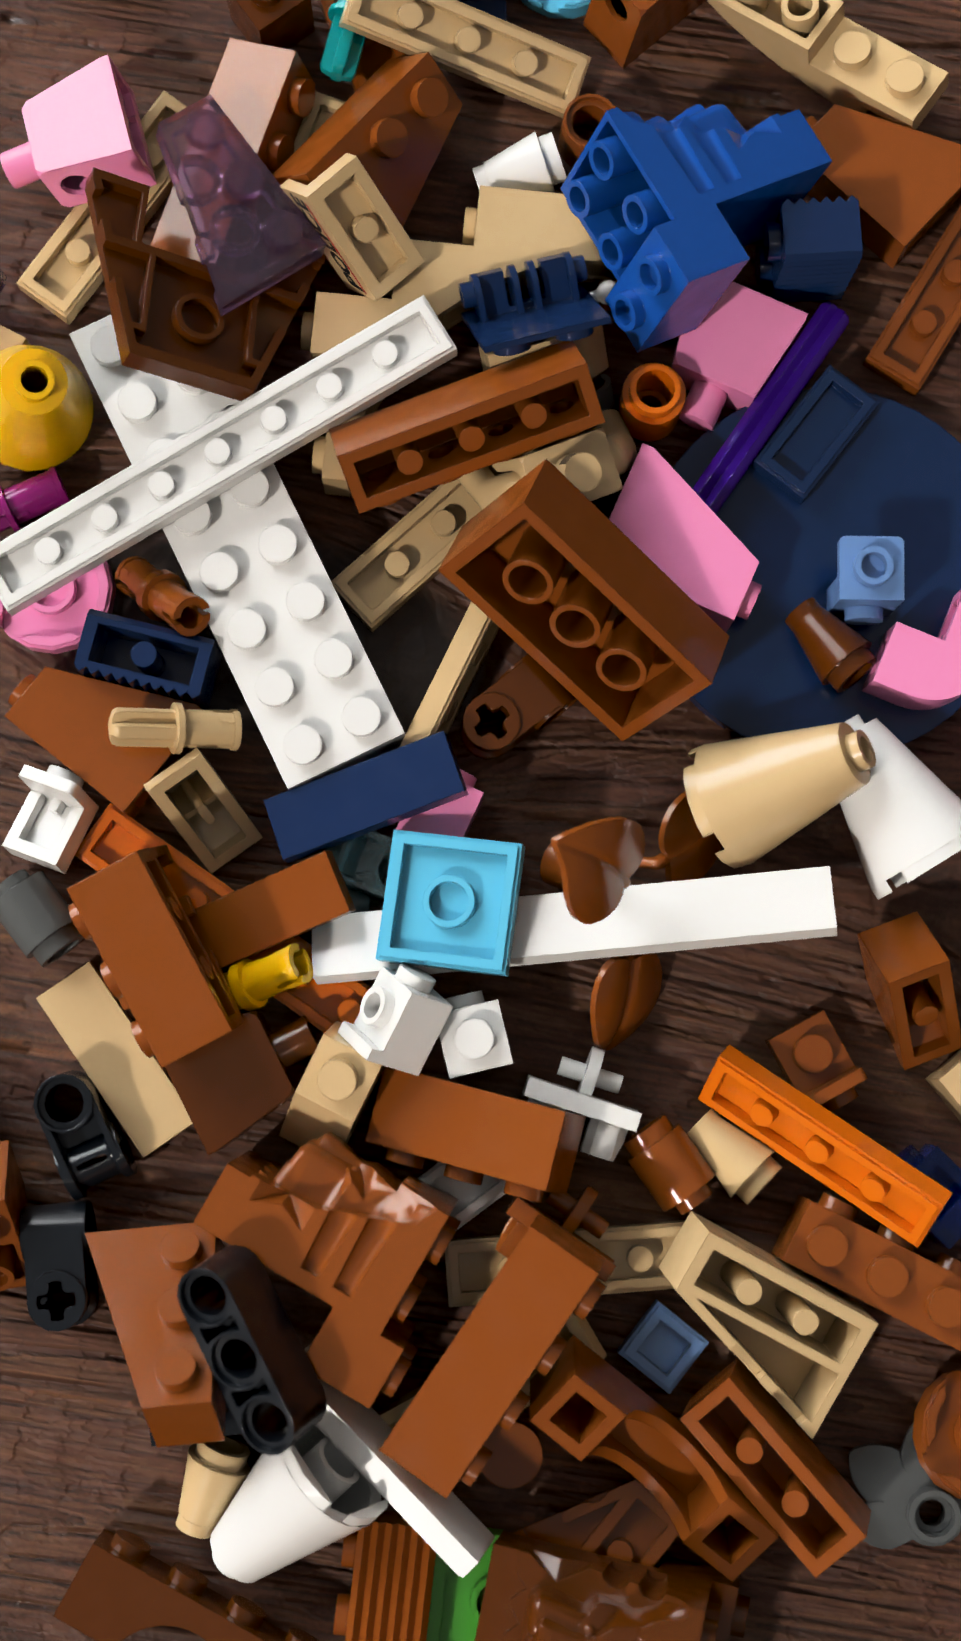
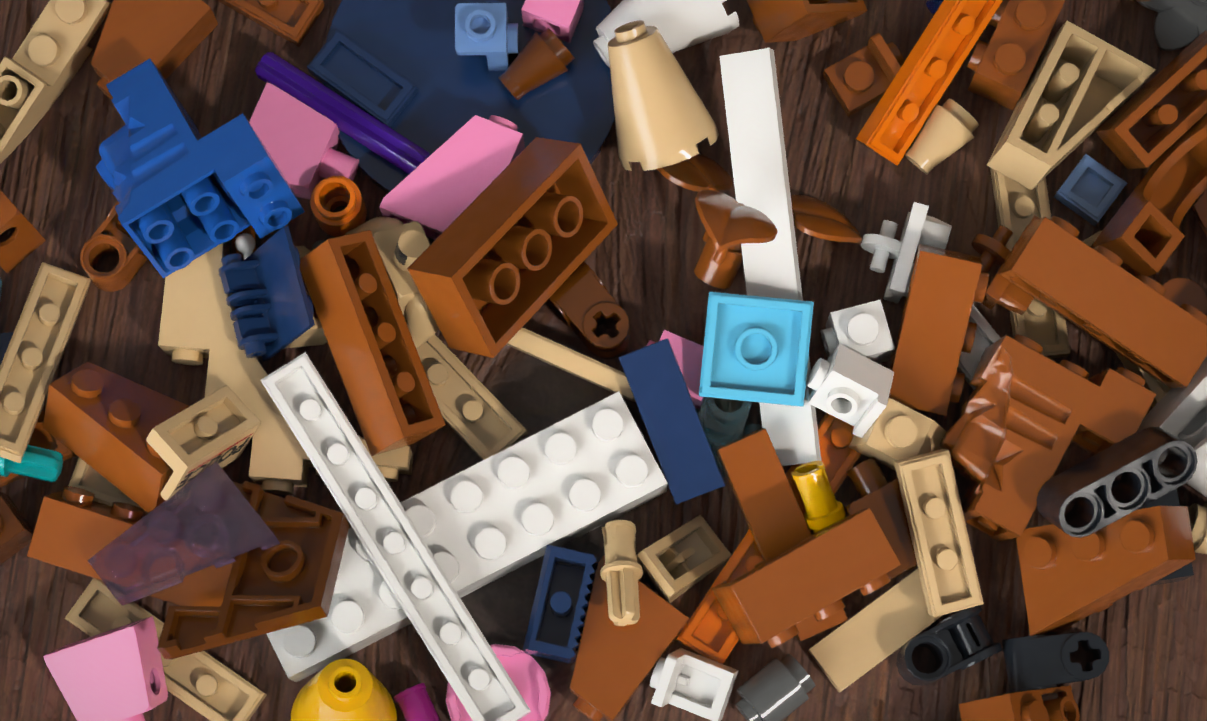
camera: 85 degrees left, 5 degrees down
(162, 596) = (509, 593): dark orange pin -> none
(213, 1122) = (938, 532): none -> tan tile
(525, 165) = (137, 316): white cone -> none
(669, 1165) = (951, 183): dark orange brick -> none
(810, 250) = (214, 78): dark blue brick -> none

